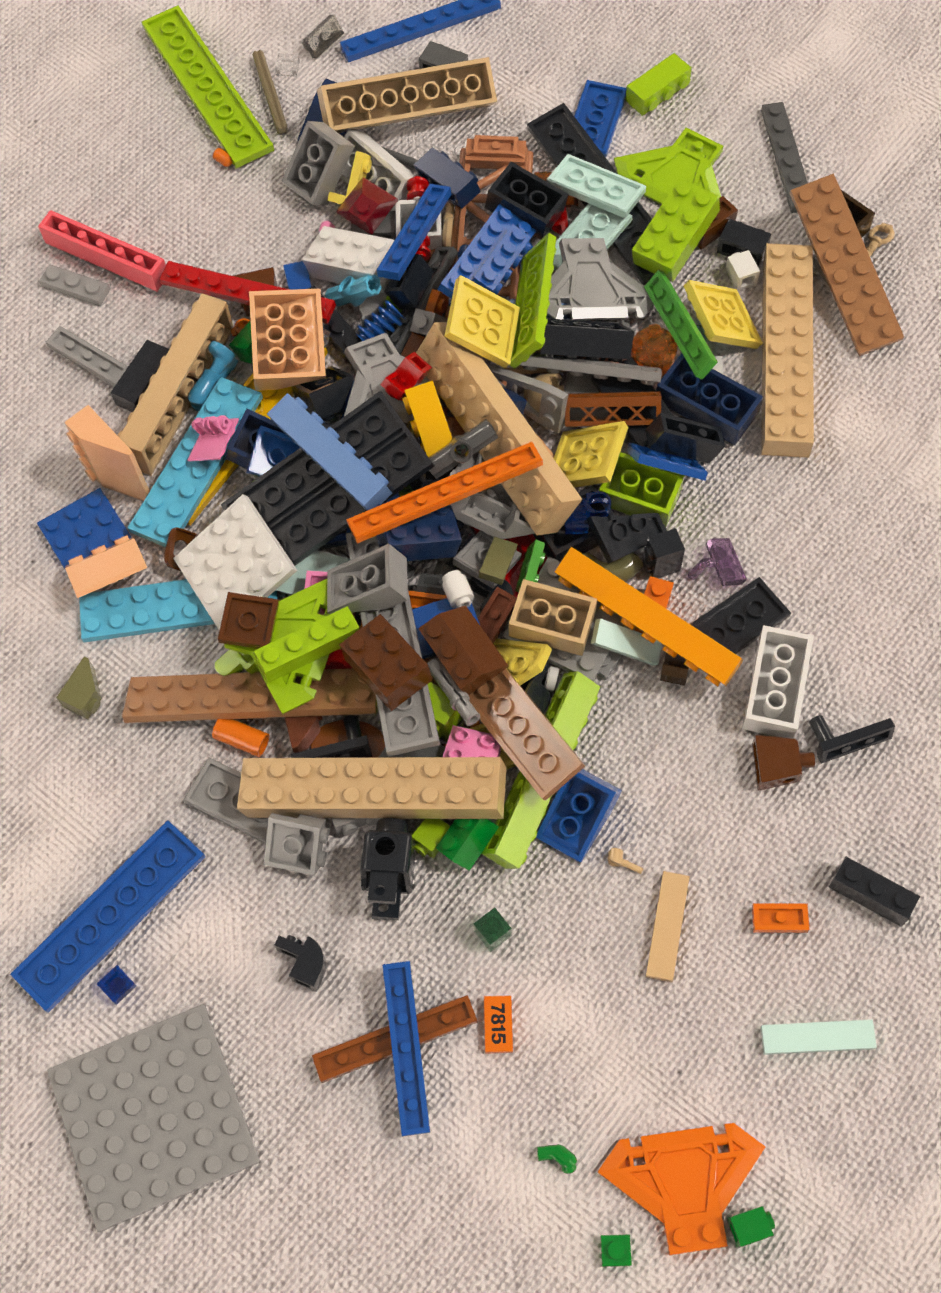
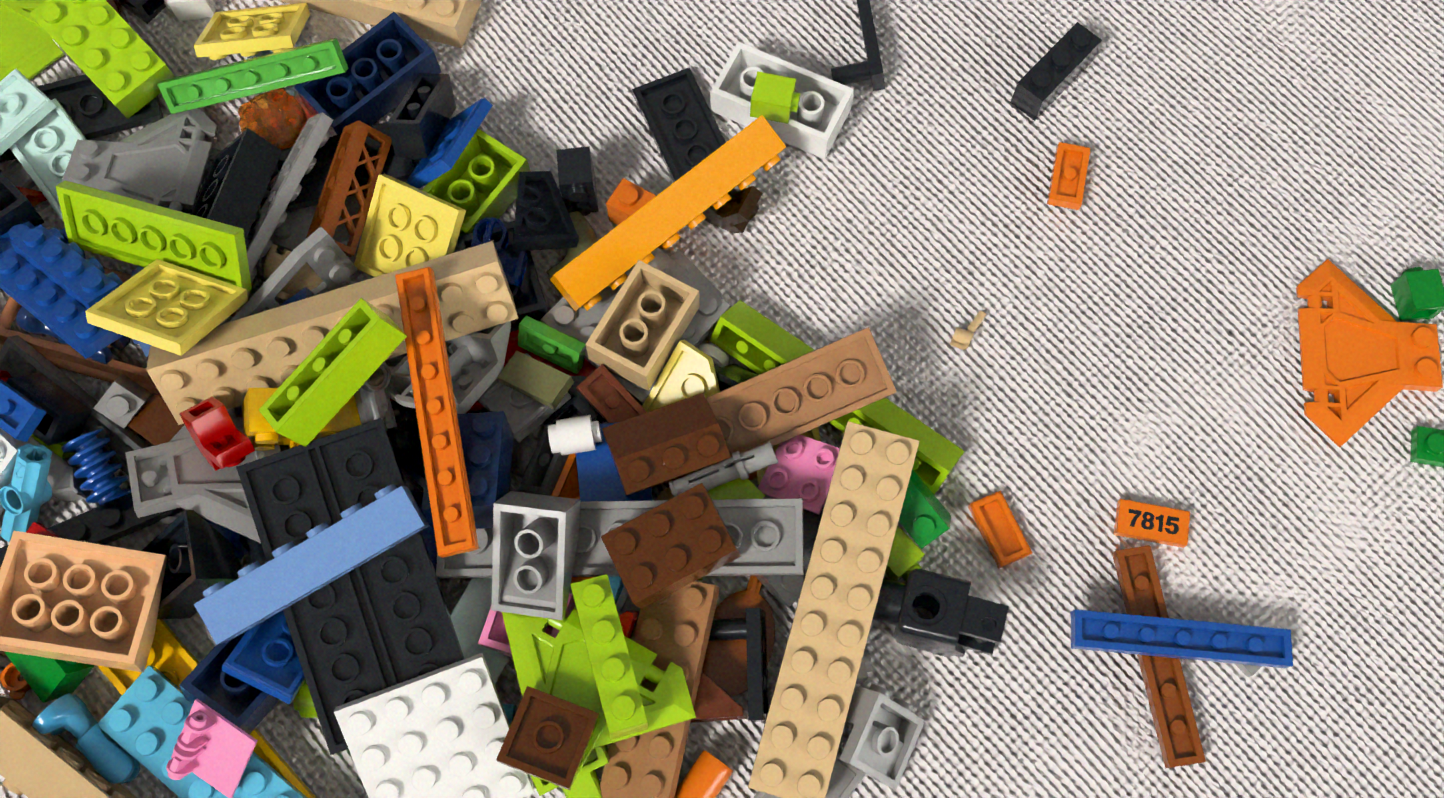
camera: 80 degrees left, 5 degrees up
(310, 961) = (1040, 747): black brick -> none
(437, 302) = (90, 382): orange plate -> none
(449, 422) = (332, 373): none -> lime brick
(468, 910) = (999, 529): none -> orange tile
(492, 929) = (1036, 501): clear green brick -> none
(560, 1154) = (1317, 484): green arm -> none
(578, 814) = (912, 363): blue slope -> none
(625, 642) = (689, 252): light aqua tile -> none
(667, 926) = (1057, 300): tan tile -> none
(724, 560) = (602, 121): clear purple plate -> none
(765, 667) = (774, 97): none -> lime brick
(778, 761) = (879, 128): reddish brown torso -> none
(818, 1037) = (1209, 175): light aqua tile -> none

